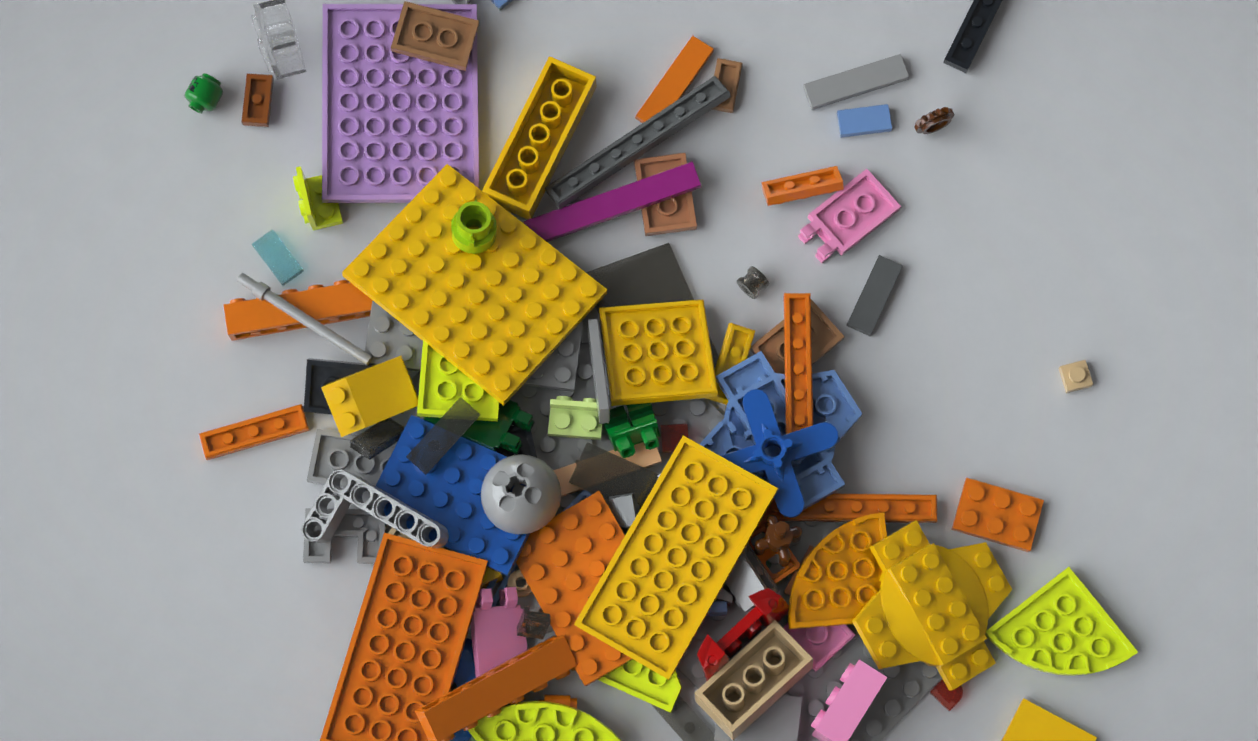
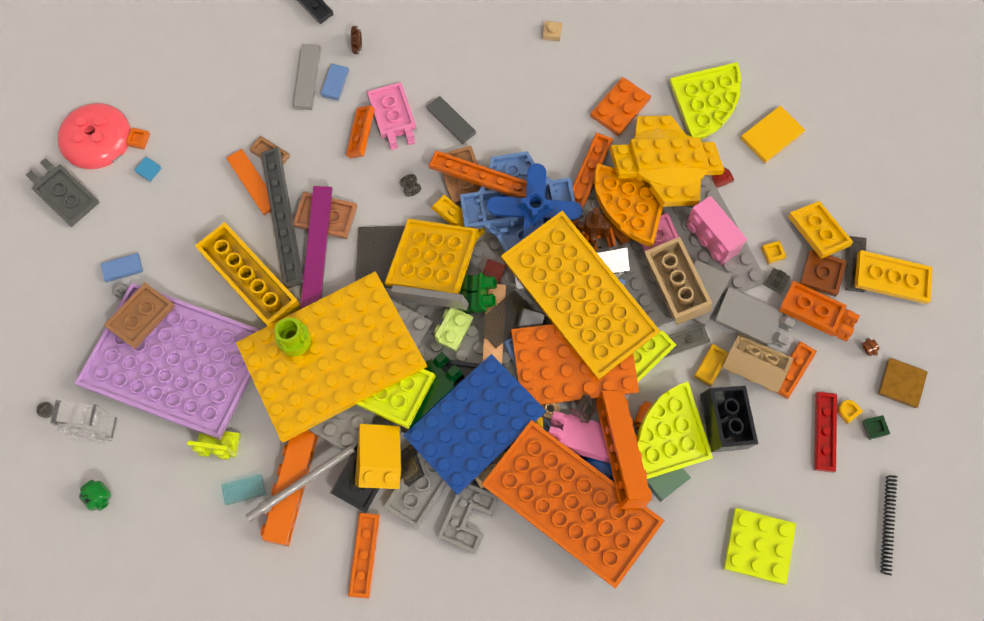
camera: 70 degrees left, 5 degrees down
(257, 100) = (120, 459): dark orange plate -> none
(374, 506) = (462, 483): light grey beam -> none
(443, 435) = (431, 414): clear smoke tile -> none
(525, 507) = (494, 390): light grey piece -> none
(768, 607) = (646, 283): red piece -> none

